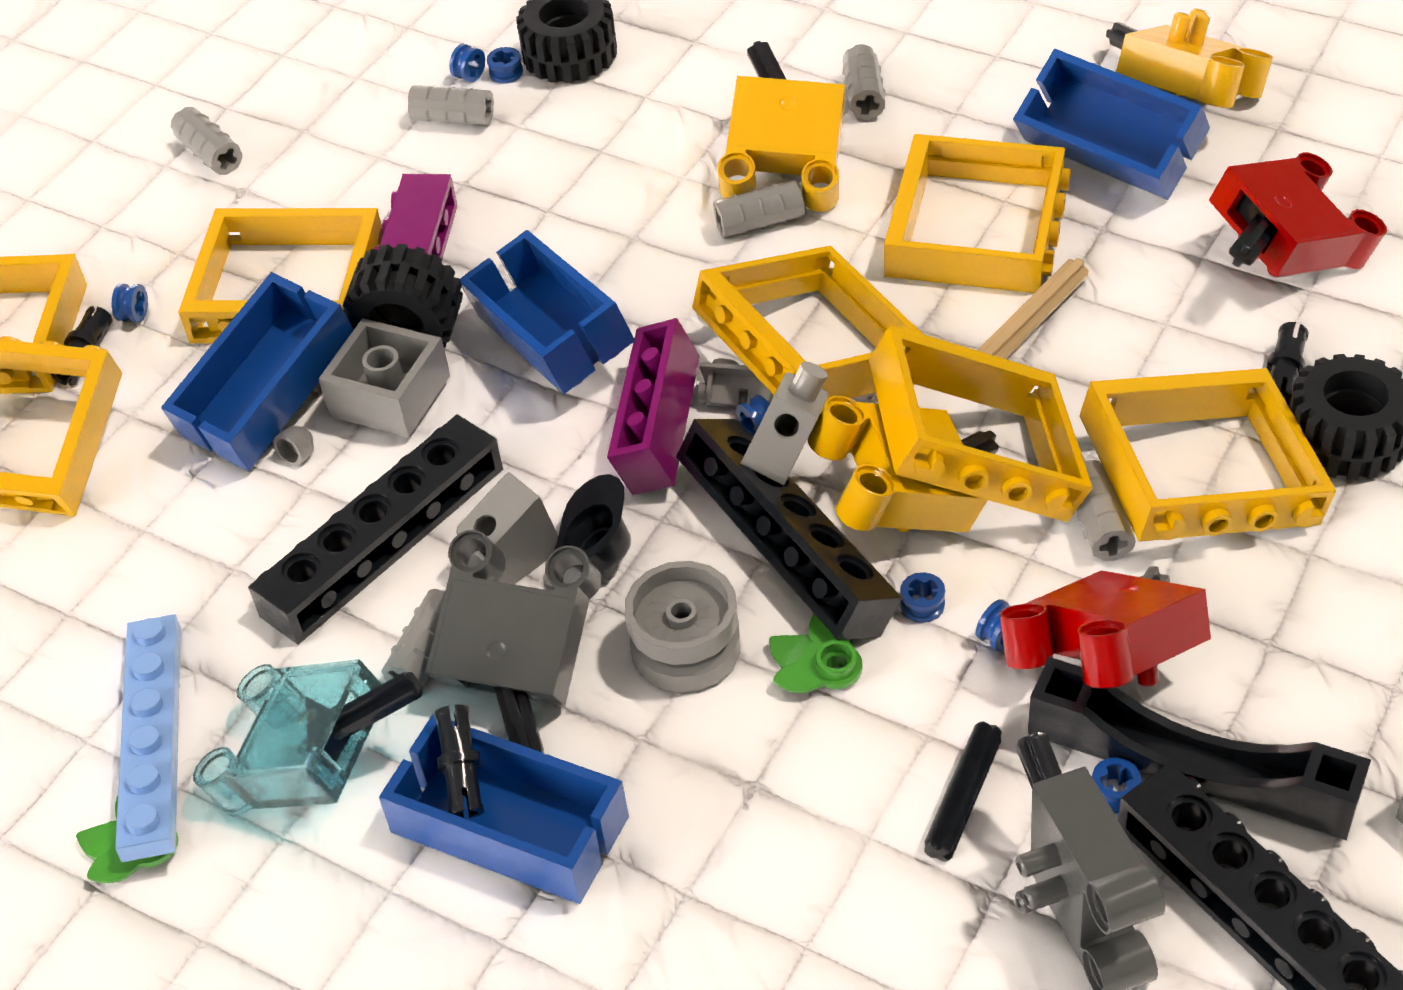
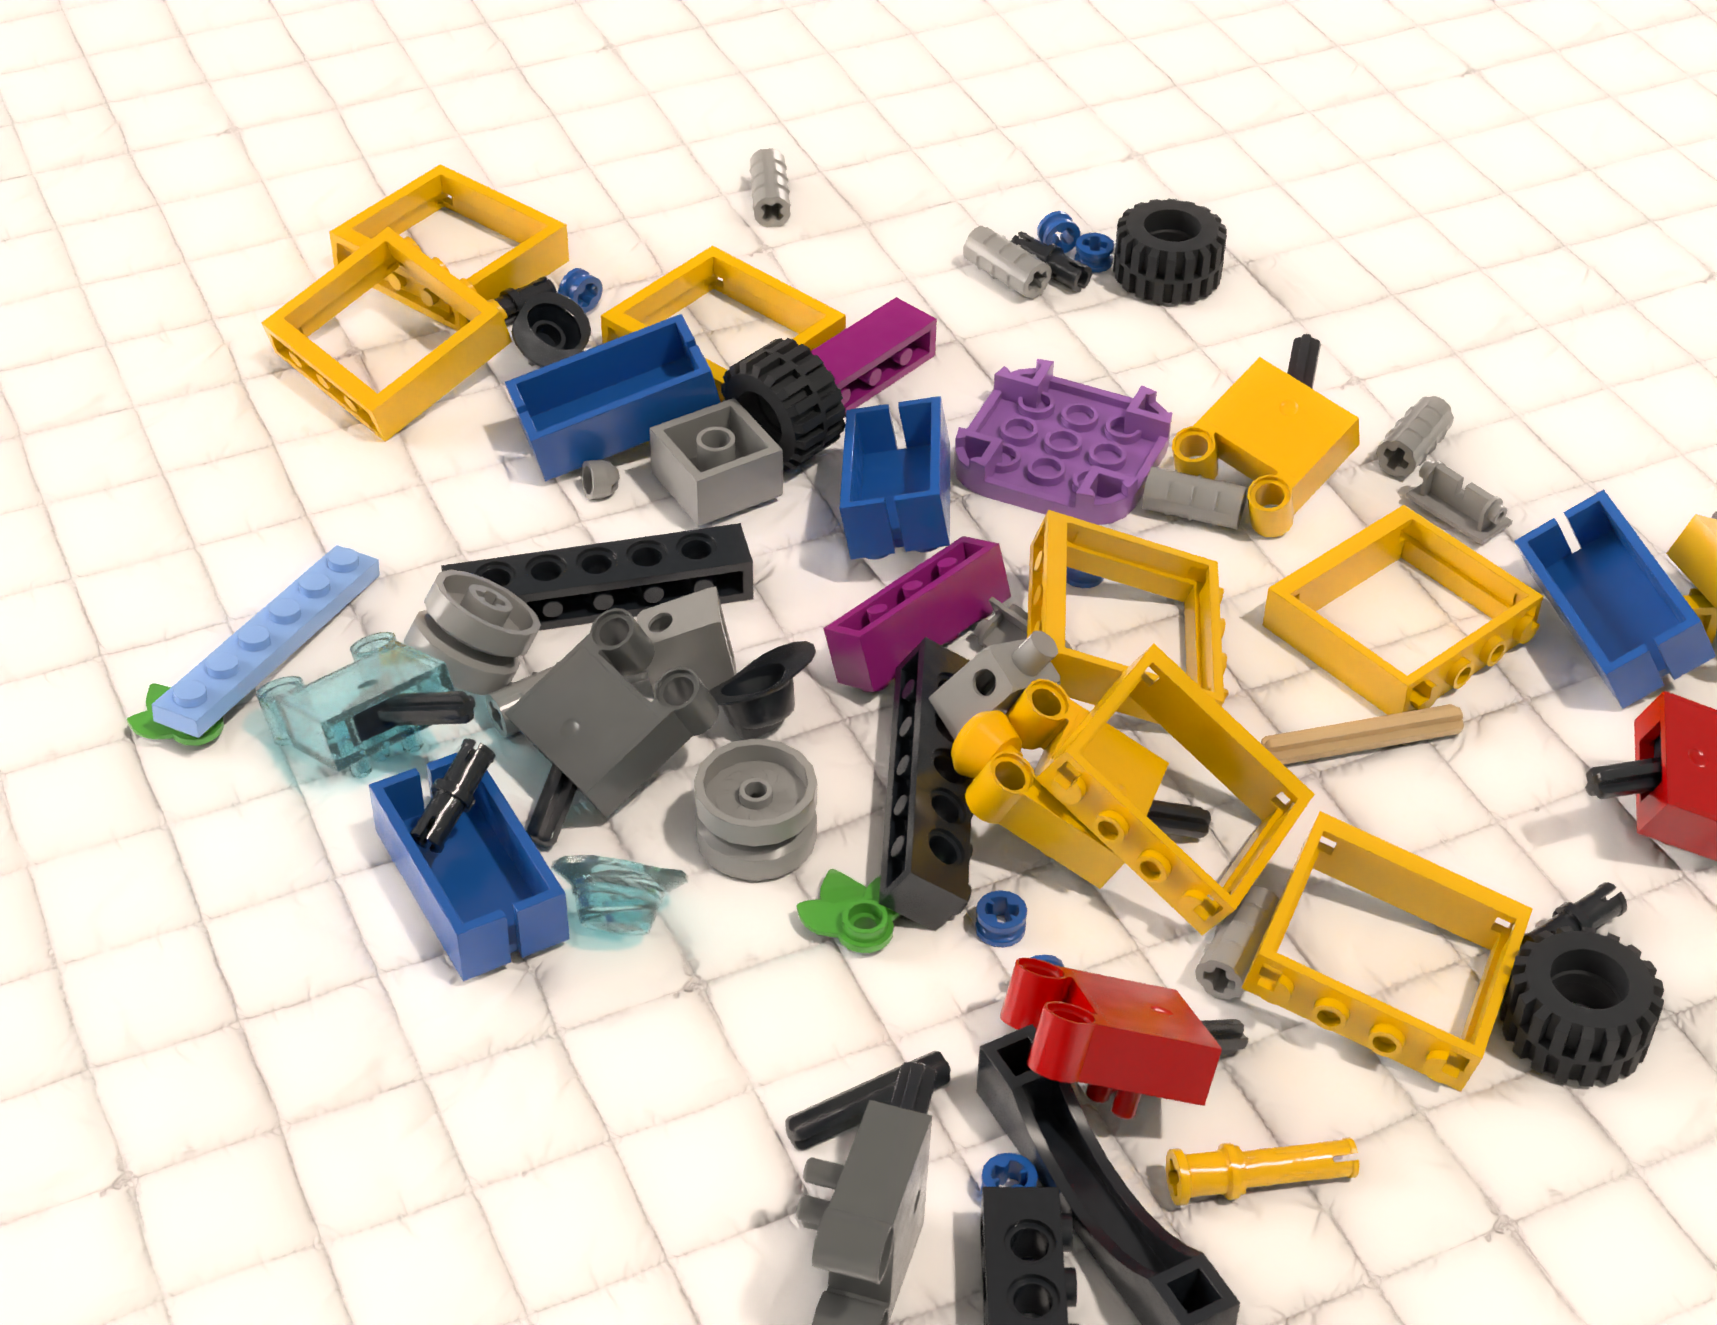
camera: 30 degrees right, 5 degrees down
(146, 348) = (550, 329): none -> black piece
(333, 620) = (474, 630): none -> light grey wheel
(502, 88) = (1063, 267): none -> black pin
(627, 219) = (1062, 445): none -> medium lavender tile
(648, 758) = (617, 893): none -> clear light blue hat
(822, 474) = (981, 739): none -> yellow cone
(918, 113) = (1469, 511): none -> light grey hinge
(1250, 673) = (1233, 1171): none -> yellow pin

